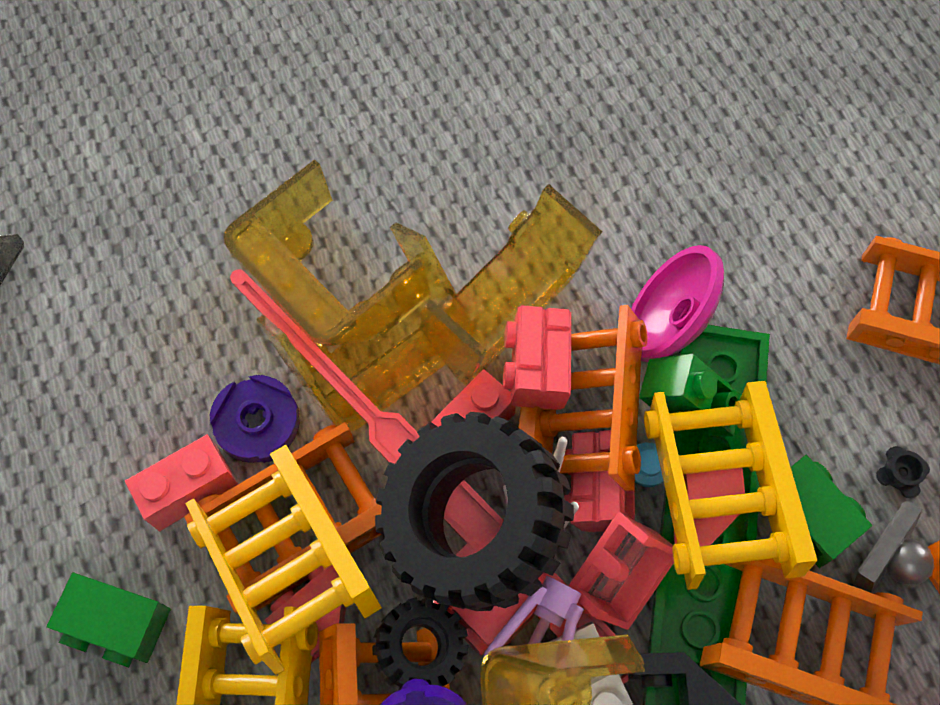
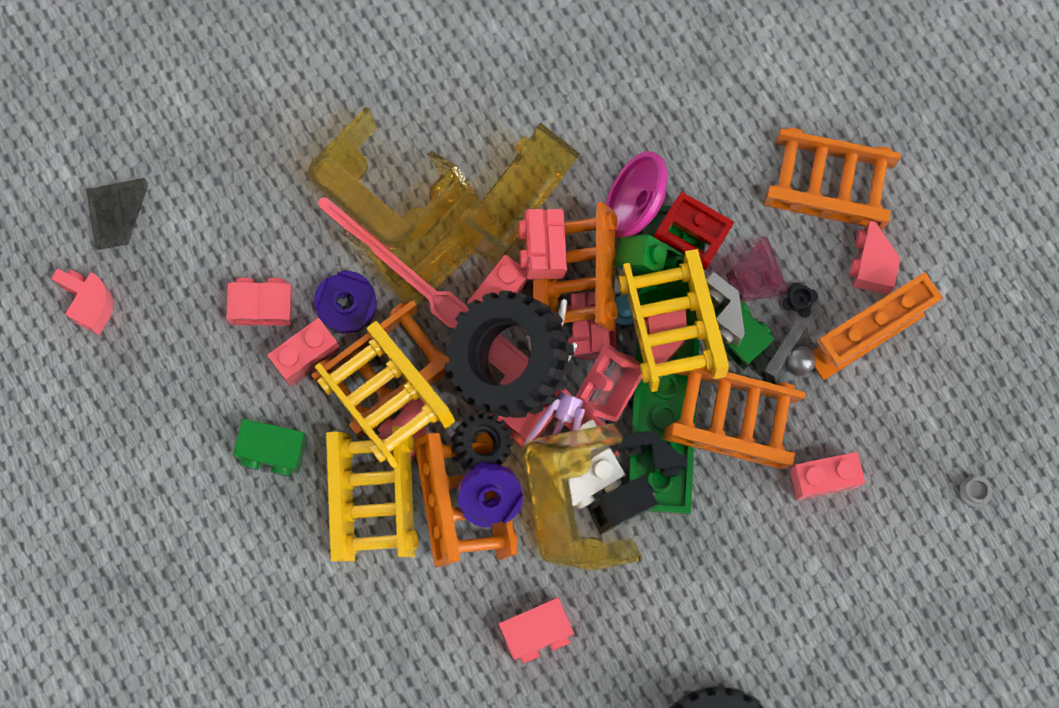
camera: 10 degrees left, 10 degrees up
(135, 409) = (259, 302): none -> coral brick
(758, 347) = (697, 221): none -> red plate
(814, 483) = (730, 319): none -> light grey slope
(842, 430) = (757, 274): none -> clear pink wing

